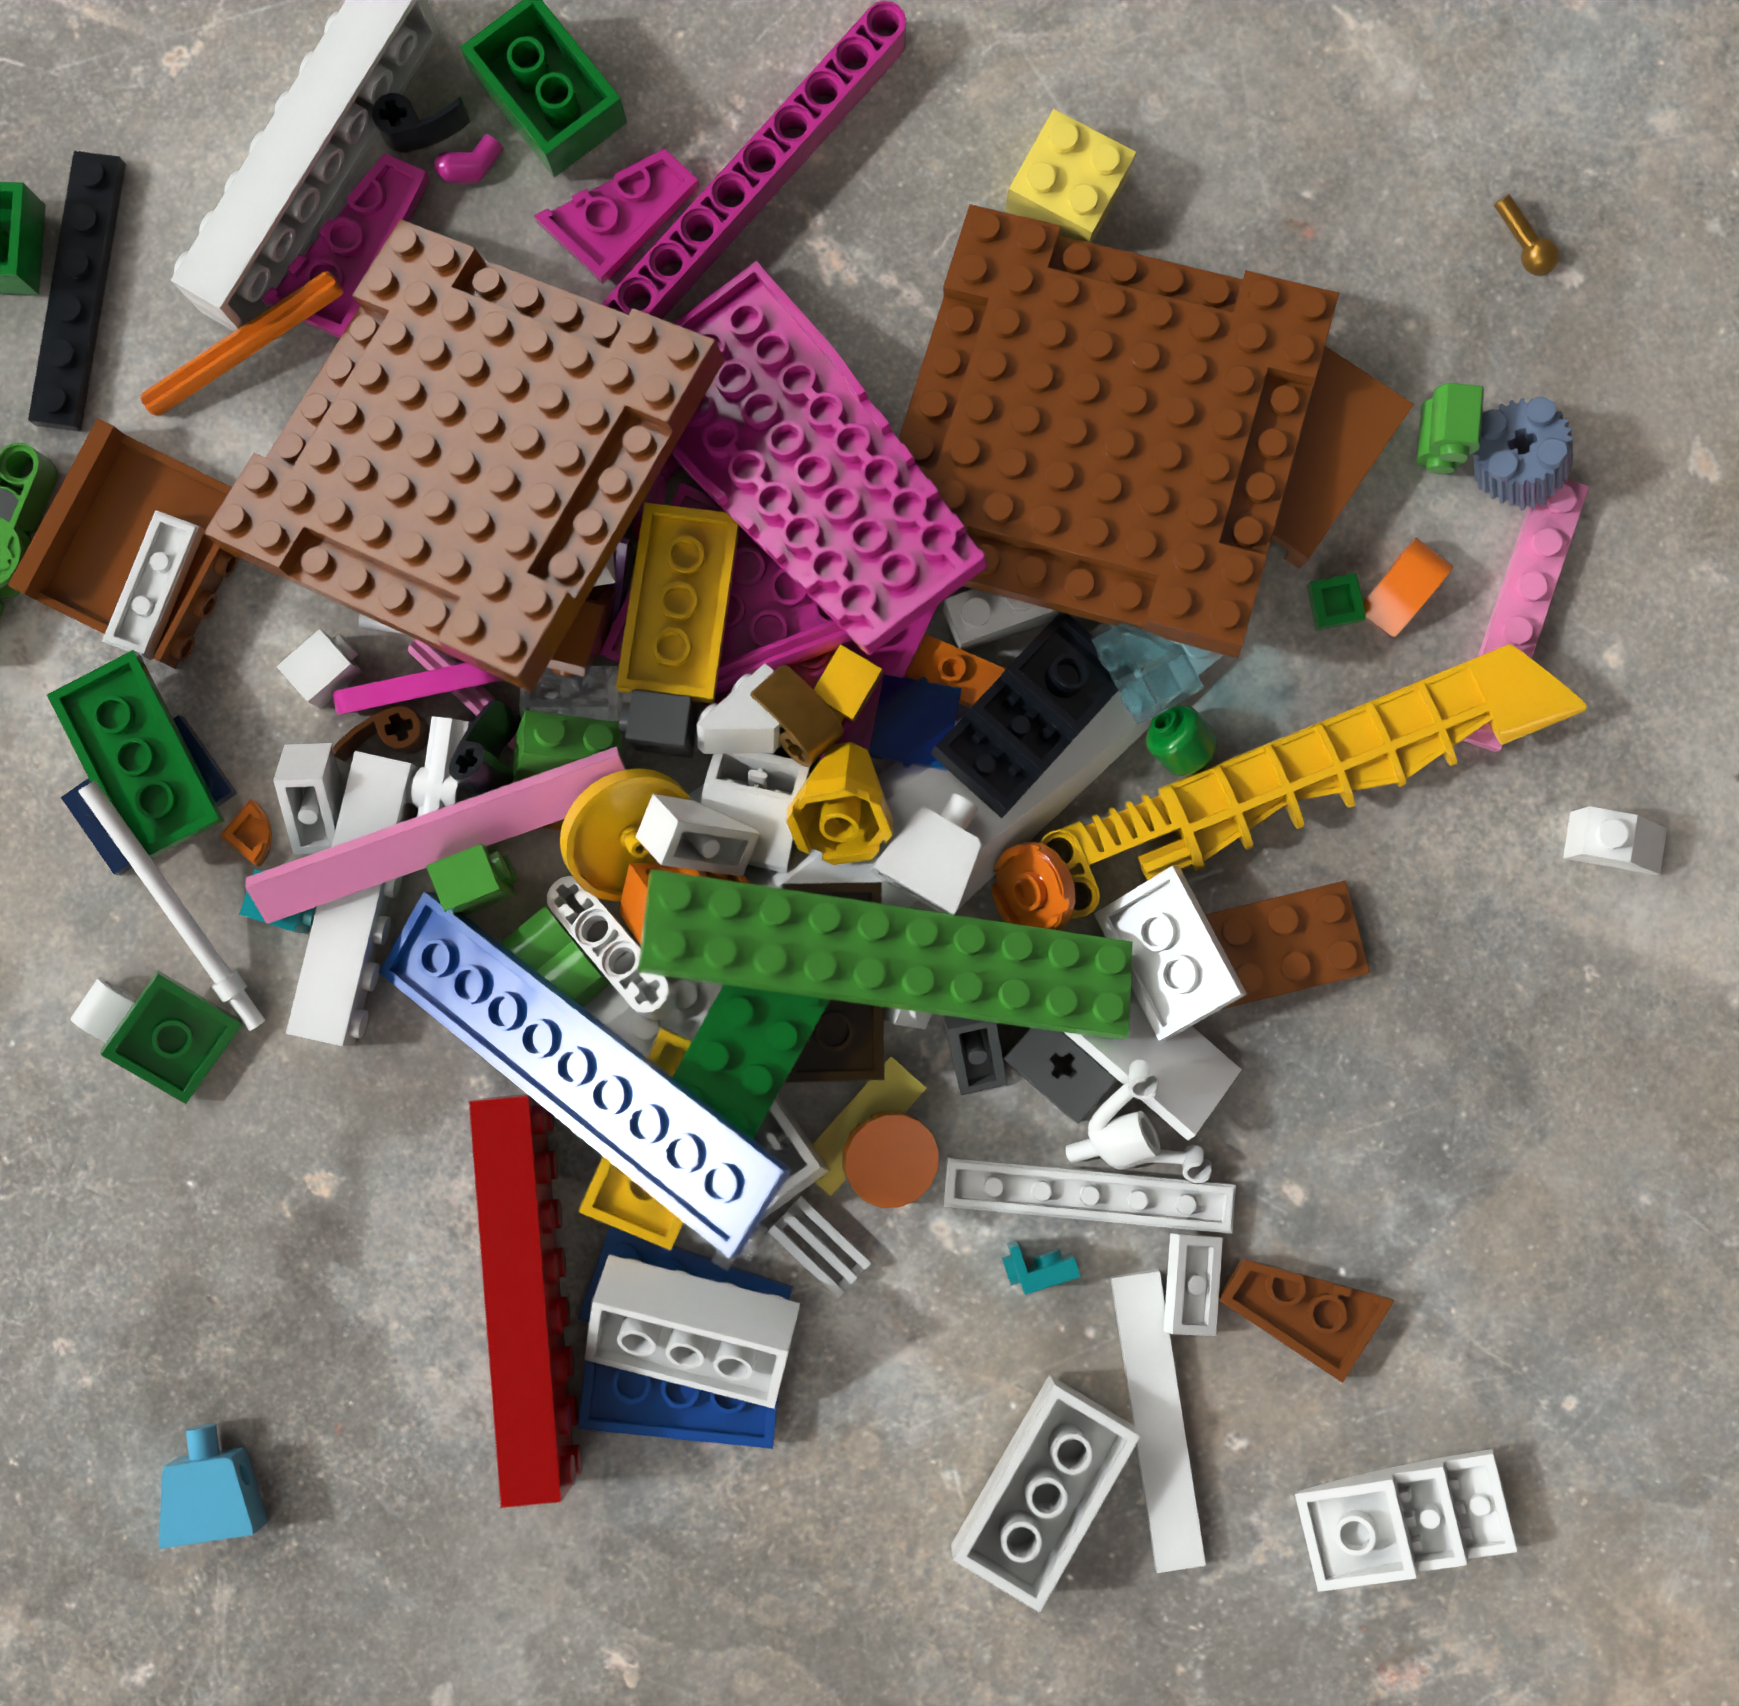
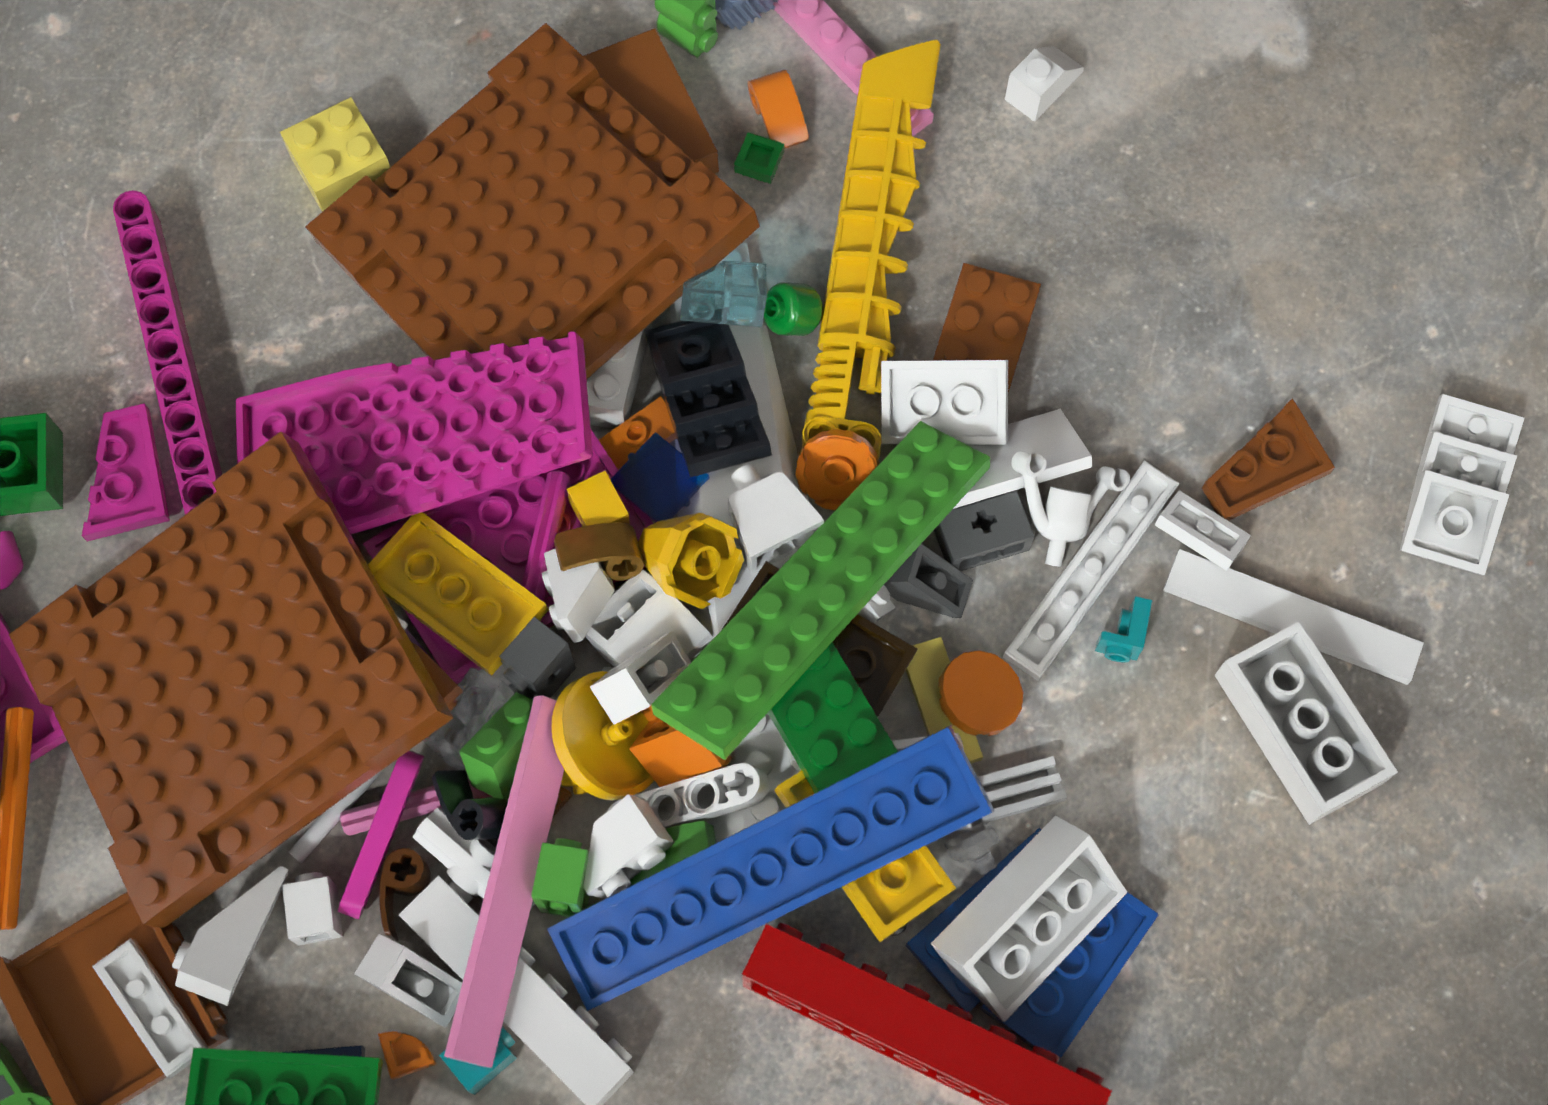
camera: 60 degrees left, 15 degrees down
(234, 616) = (226, 942): none -> white slope
(533, 915) = (622, 845): none -> white slope

